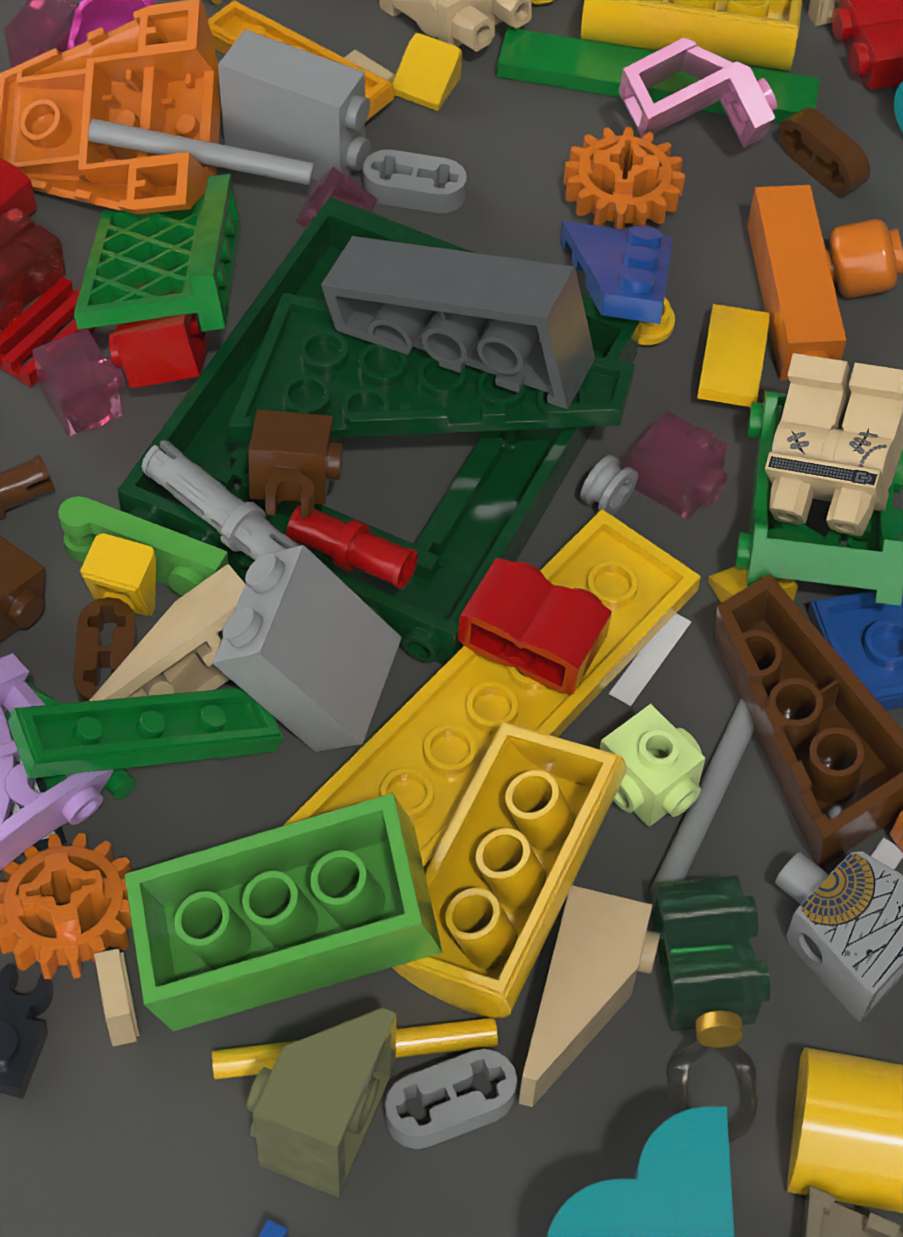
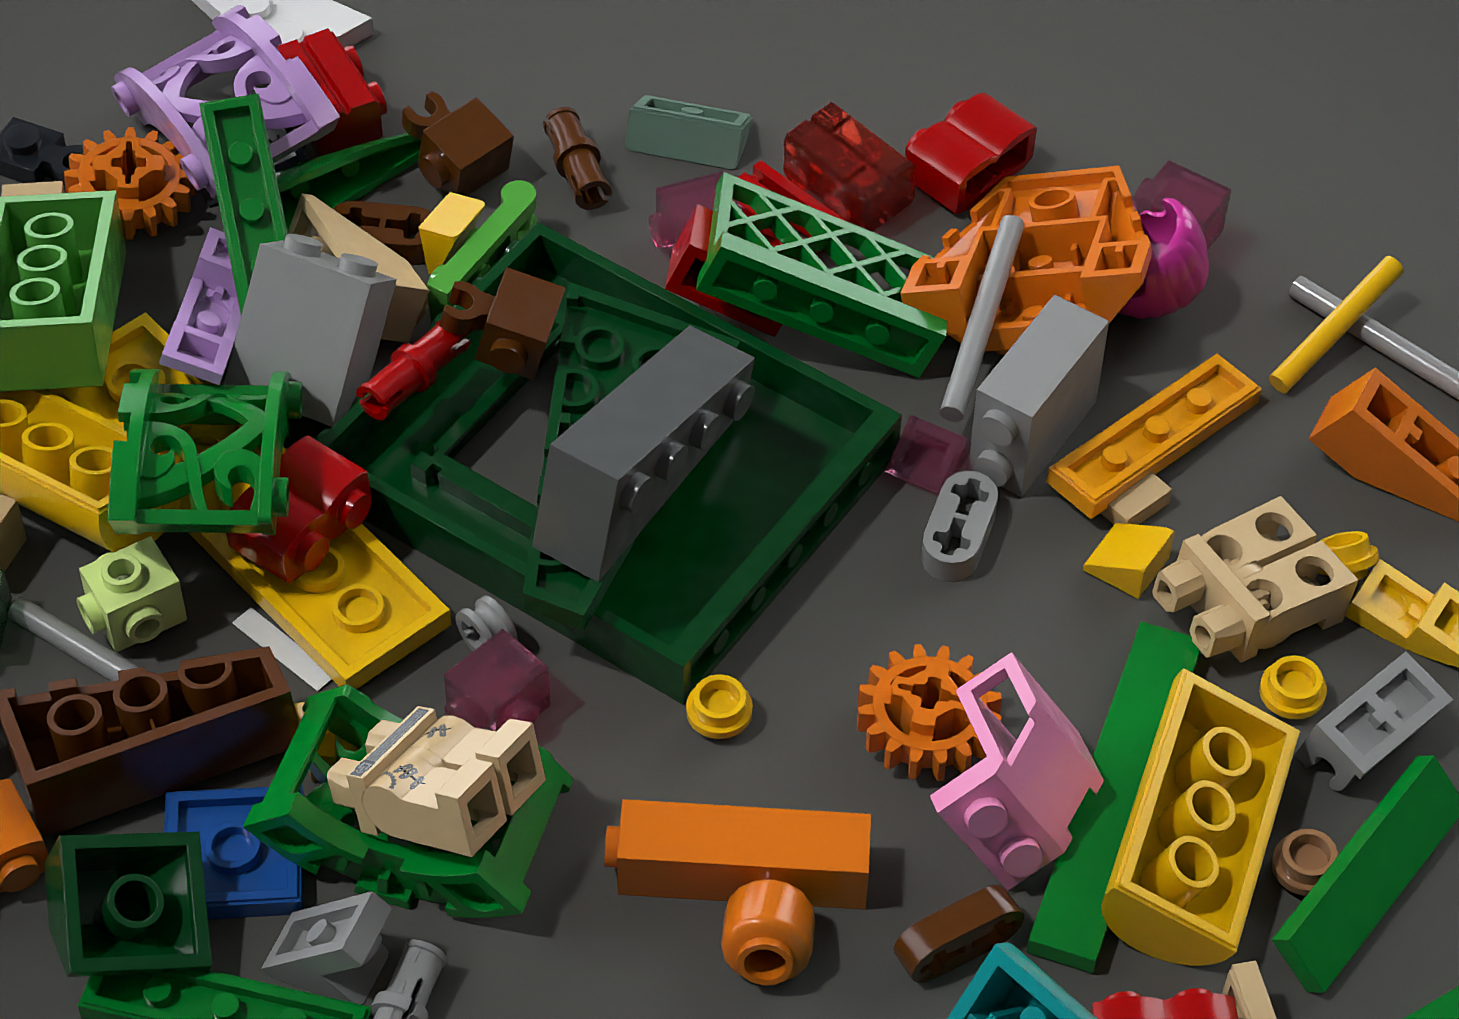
camera: 100 degrees right, 5 degrees down
(239, 522) = (521, 254): light grey pin -> none
(272, 782) = (207, 317): none -> lavender slope
(531, 613) = (150, 480): none -> green fence
(622, 268) = (770, 674): blue wing -> none
(733, 355) = (638, 768): yellow slope -> none

